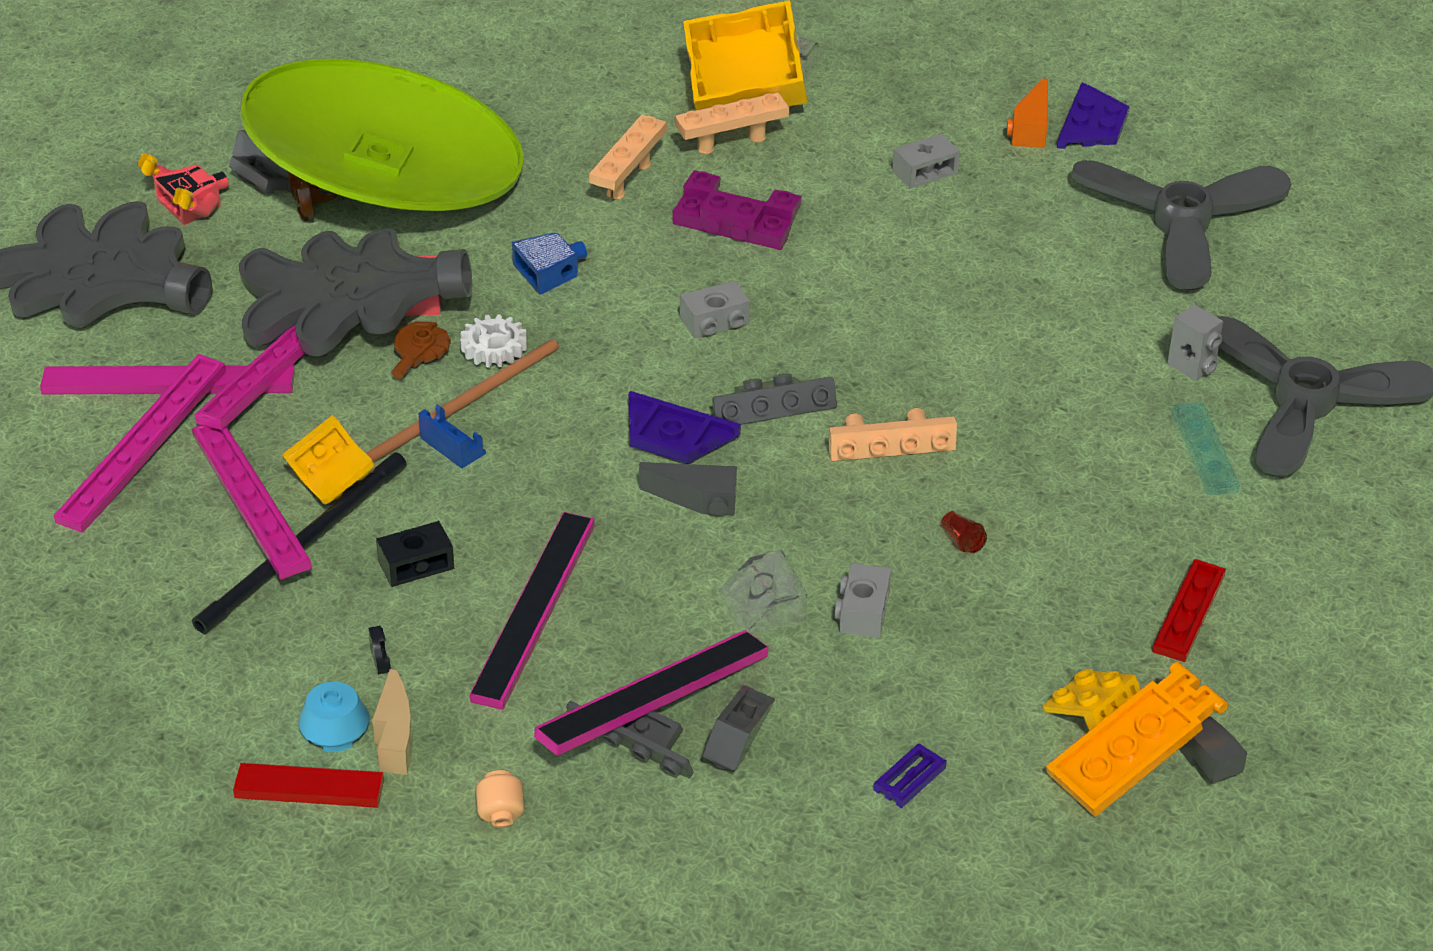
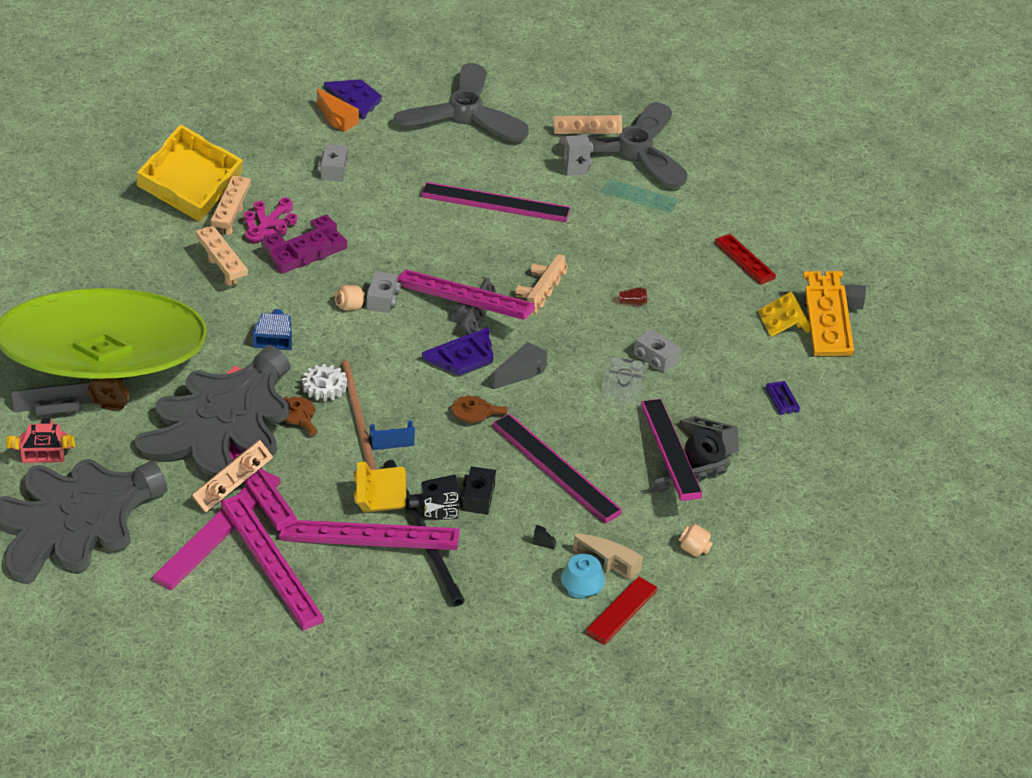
camera: 60 degrees left, 0 degrees up
(244, 340) = (231, 476): none -> light nougat plate
(354, 521) = (438, 498): none -> black torso
(570, 483) = (474, 409): none -> dark orange piece
(669, 286) = (349, 297): none -> light nougat head
(687, 705) = (709, 440): none -> black tyre
(755, 166) = (255, 234): none -> dark pink plant
(771, 373) = (466, 294): none -> dark pink tile
(1024, 328) = (496, 202): none -> tile
(1279, 324) = (588, 124): none -> light nougat plate

